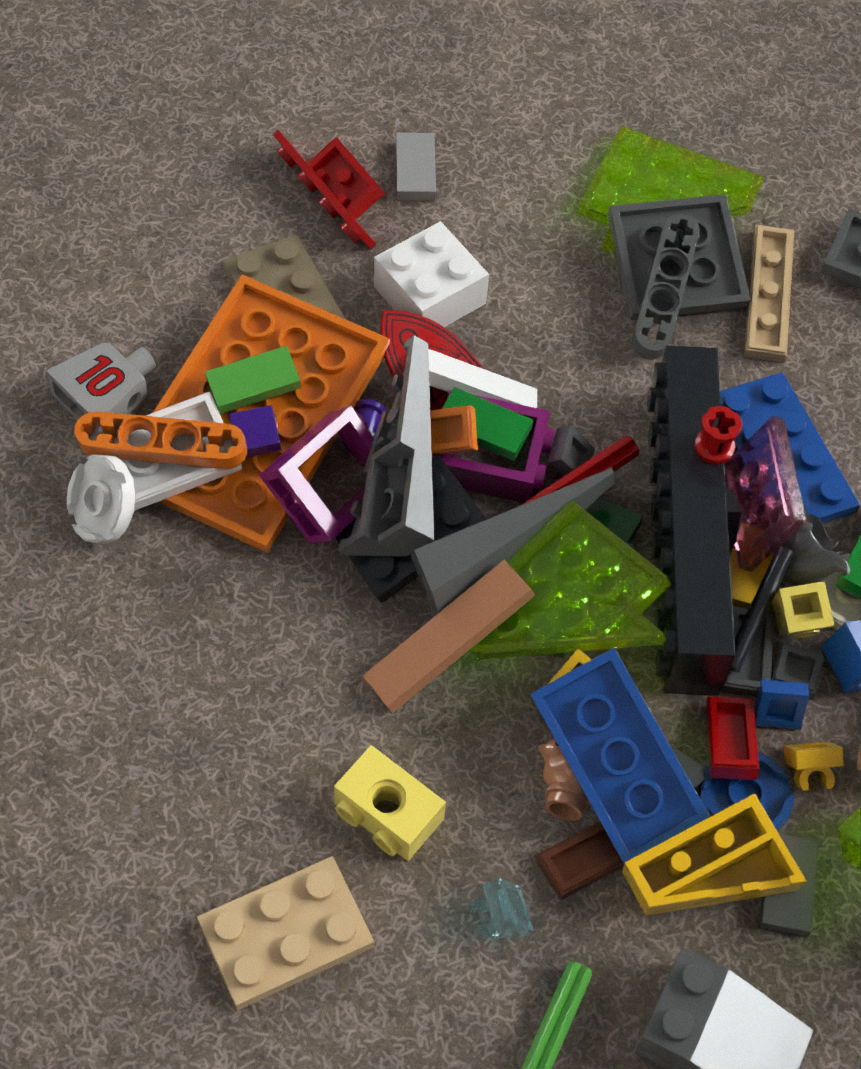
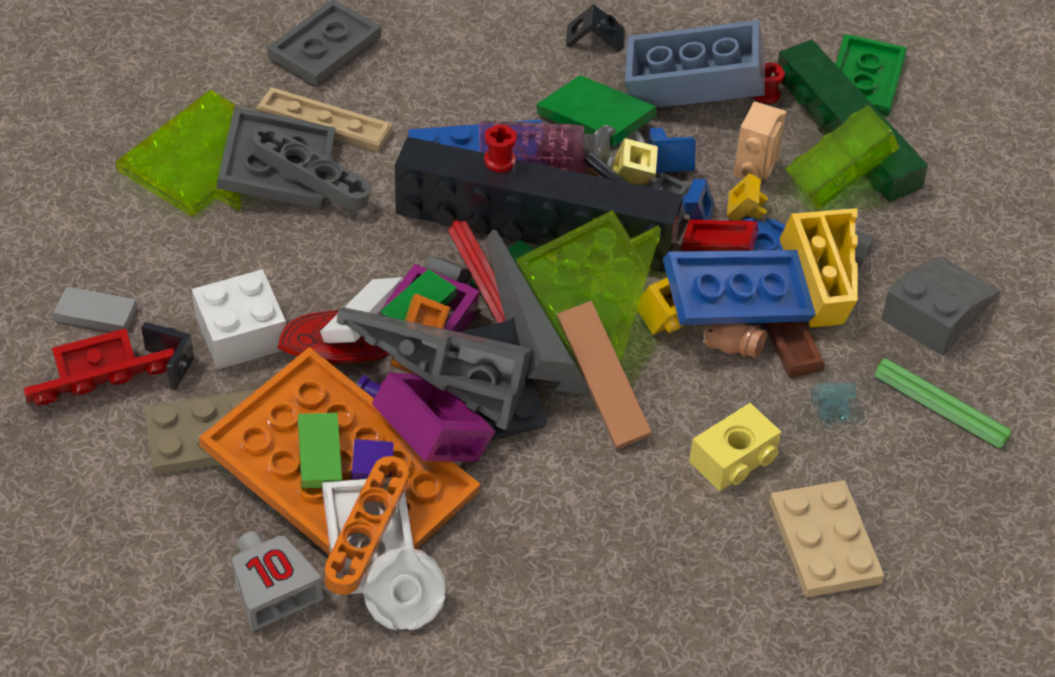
camera: 75 degrees left, 10 degrees down
(375, 242) = (162, 338): none -> black bracket

